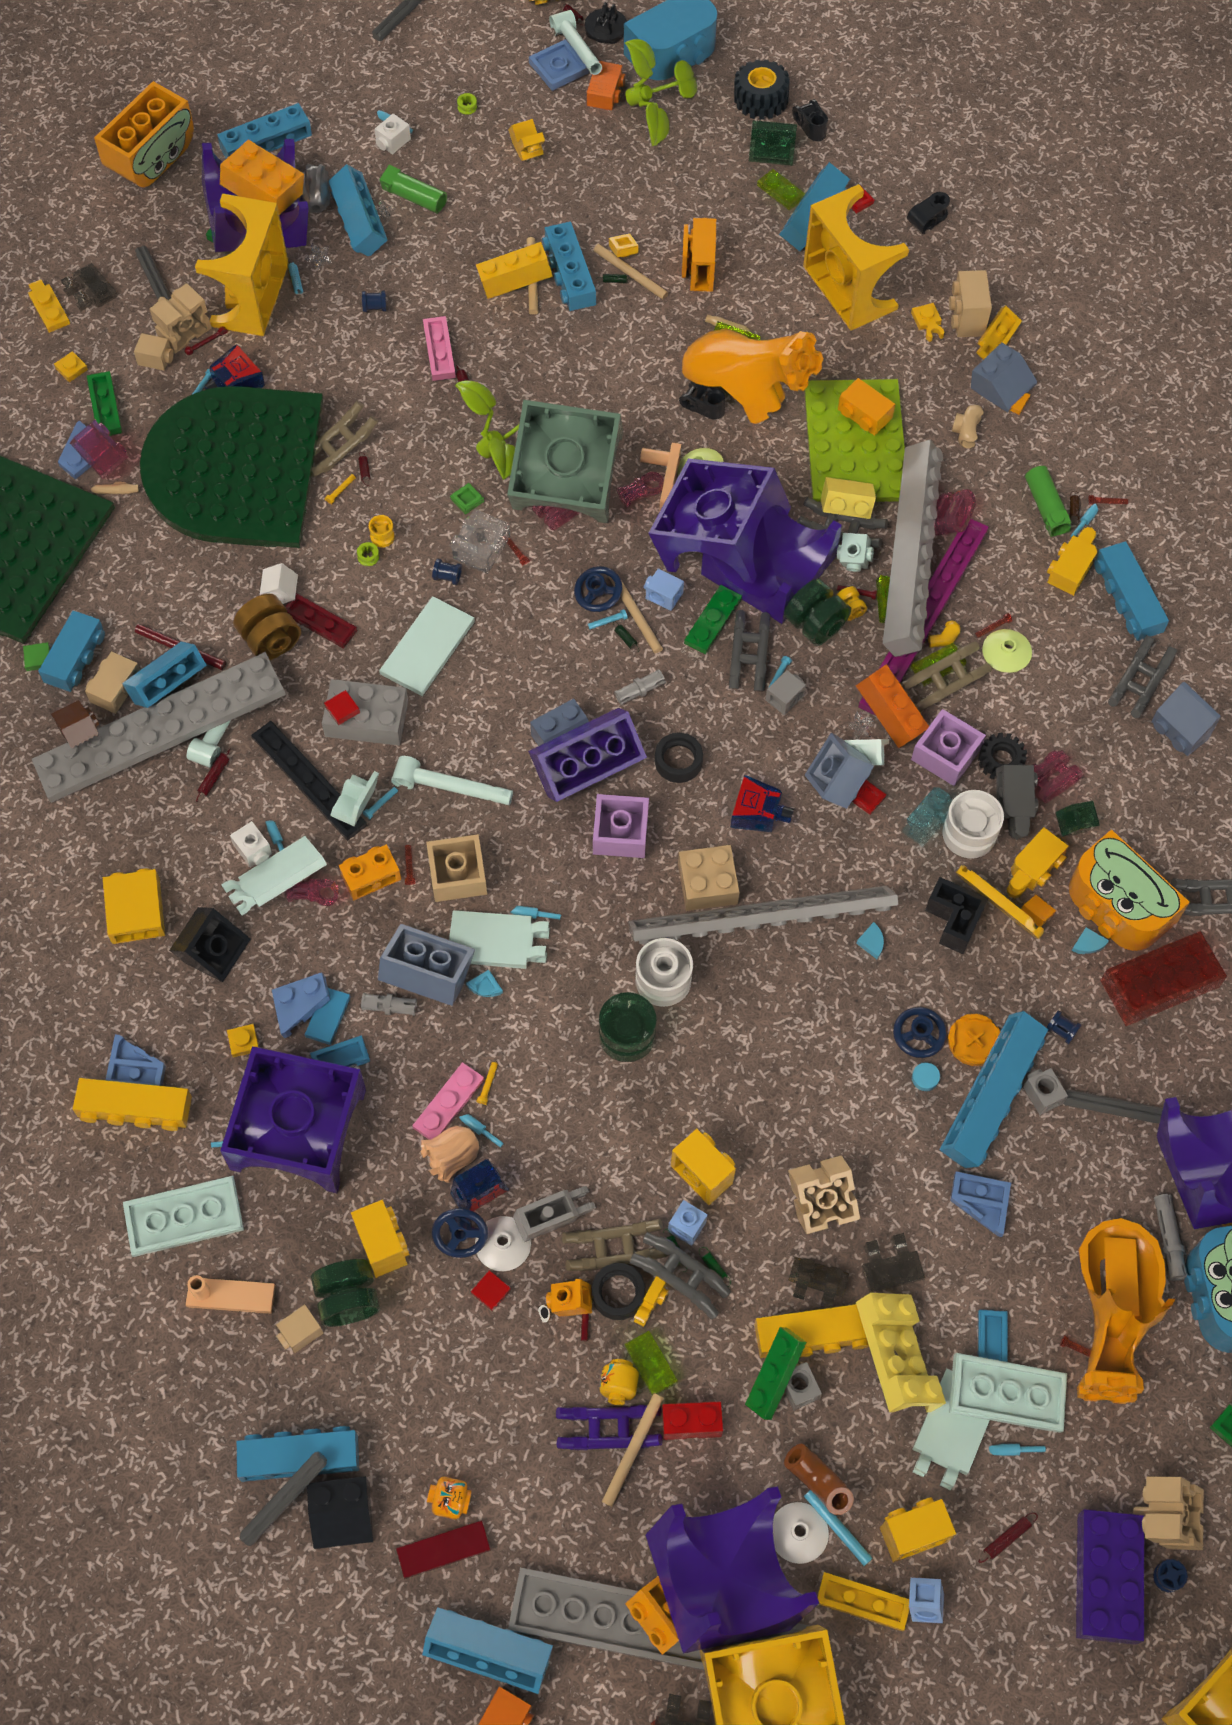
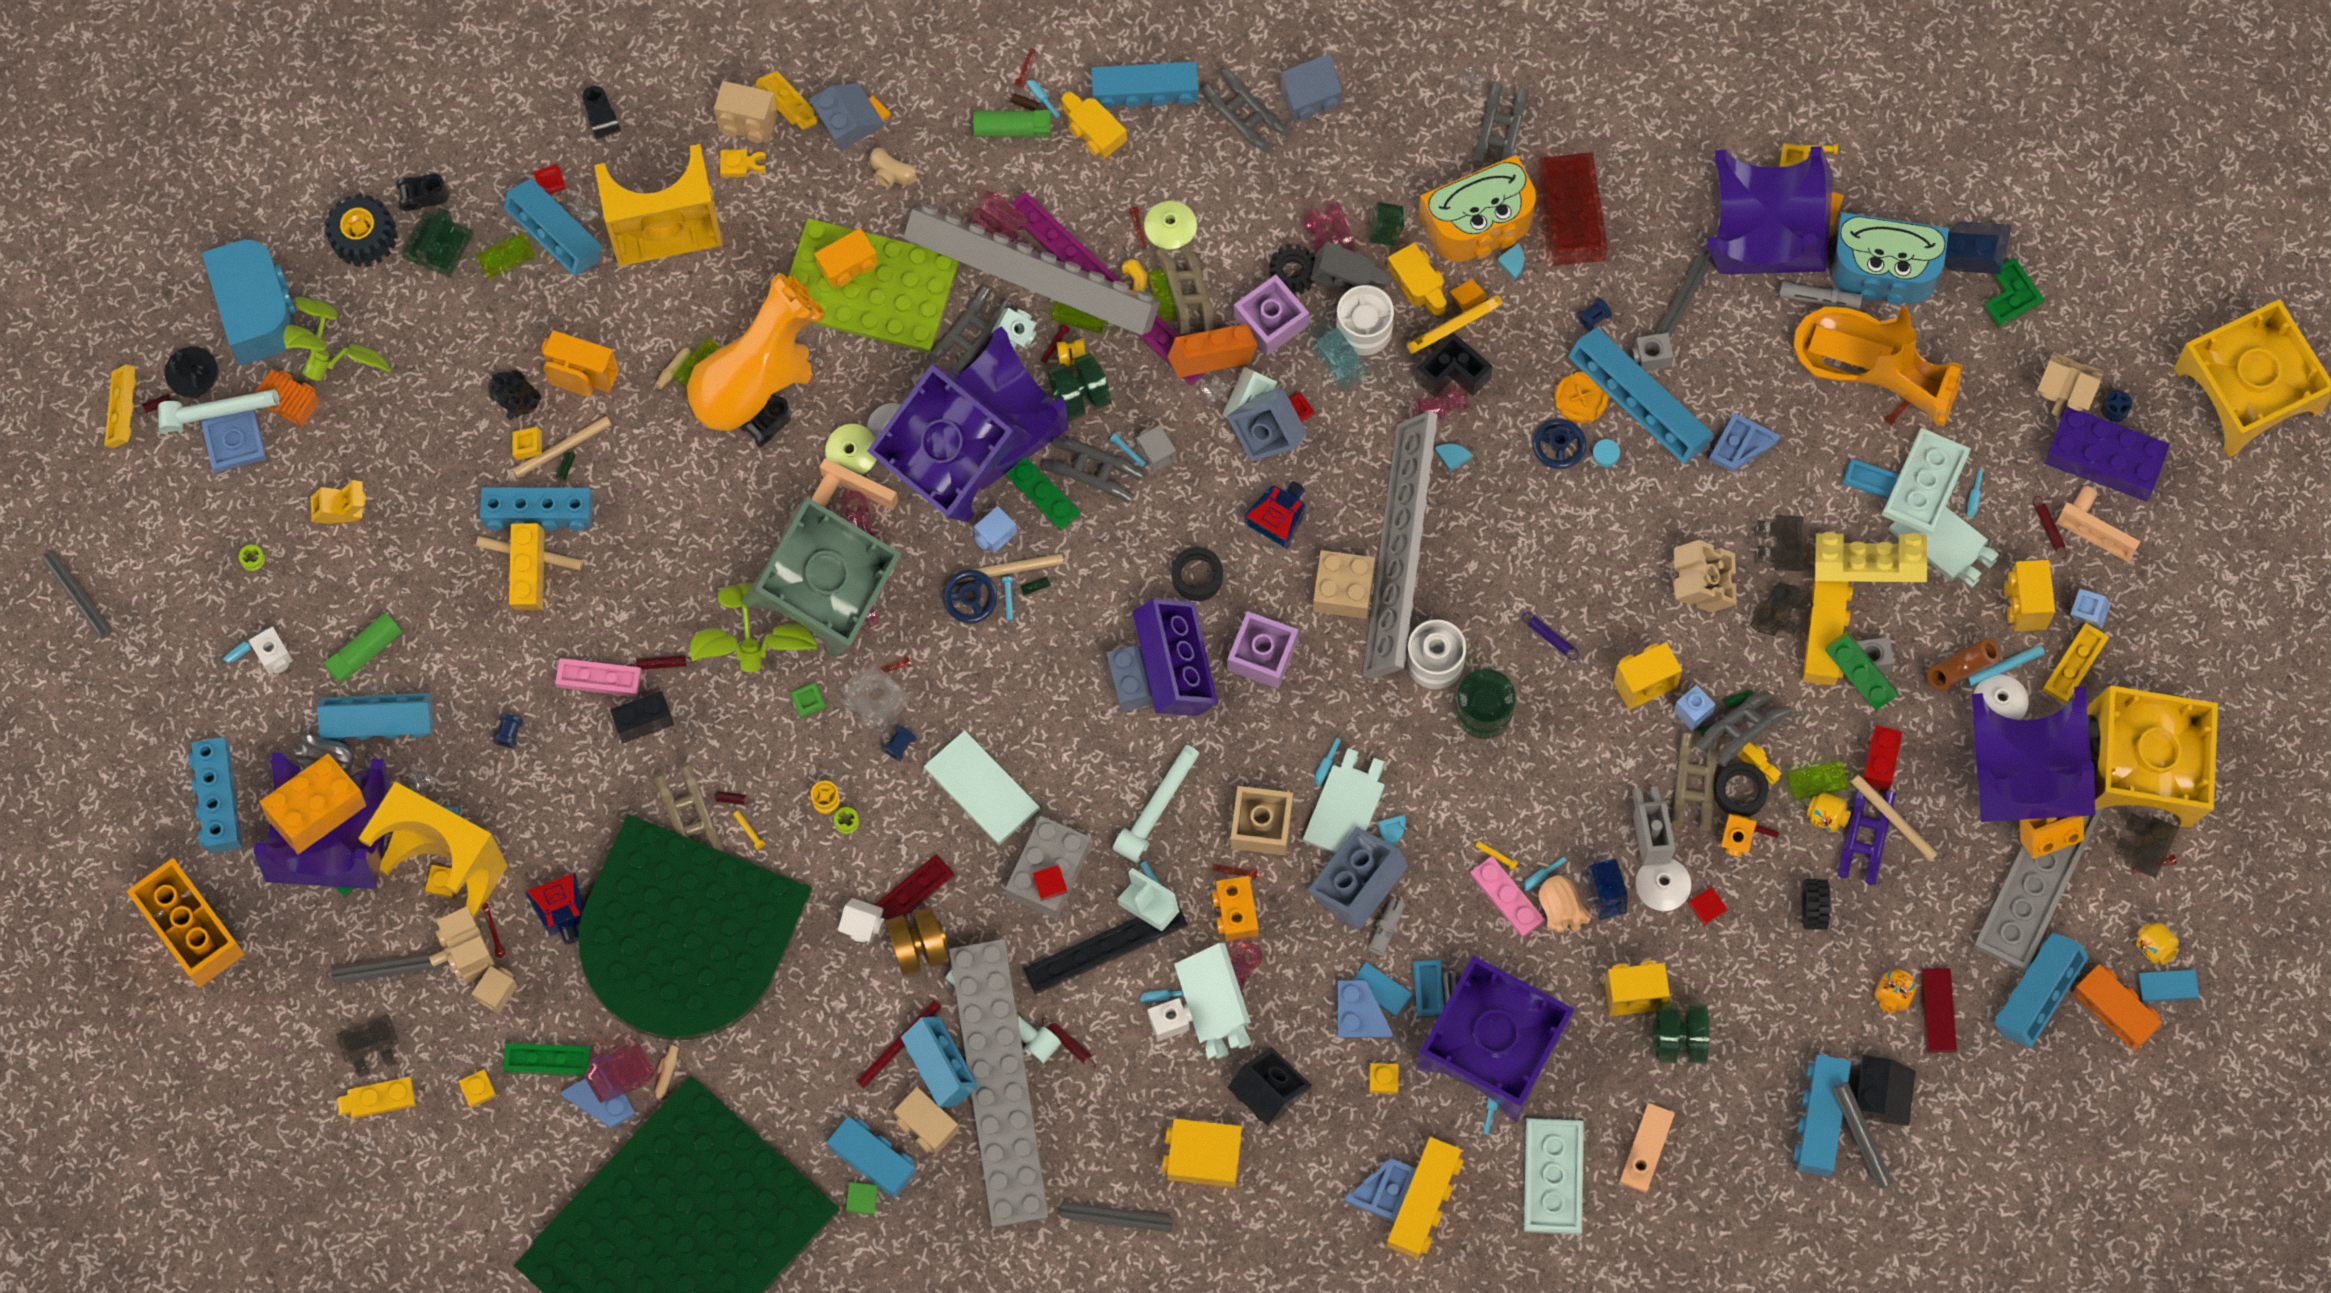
camera: 70 degrees left, 5 degrees up
(62, 854) = (1116, 1216): none -> dark grey axle
(76, 723) = (973, 1165): reddish brown brick -> none
(204, 381) = (543, 936): medium azure piece -> none
(298, 1329) = (1701, 1089): tan brick -> none
(412, 384) = (642, 717): none -> black brick
(460, 1219) = (1644, 916): dark blue piece -> none
(515, 1390) = (1815, 904): none -> black tyre
(544, 1313) = (1743, 863): sticker -> none
(640, 687) = (1102, 588): light grey pin -> none
(667, 227) = (514, 393): none -> black plate
(722, 1073) = (1549, 635): none -> dark purple piece
(848, 498) = (947, 314): light yellow brick -> none
(913, 914) = (1450, 400): none -> clear pink connector
(1024, 1562) = (2078, 521): none -> light nougat piece

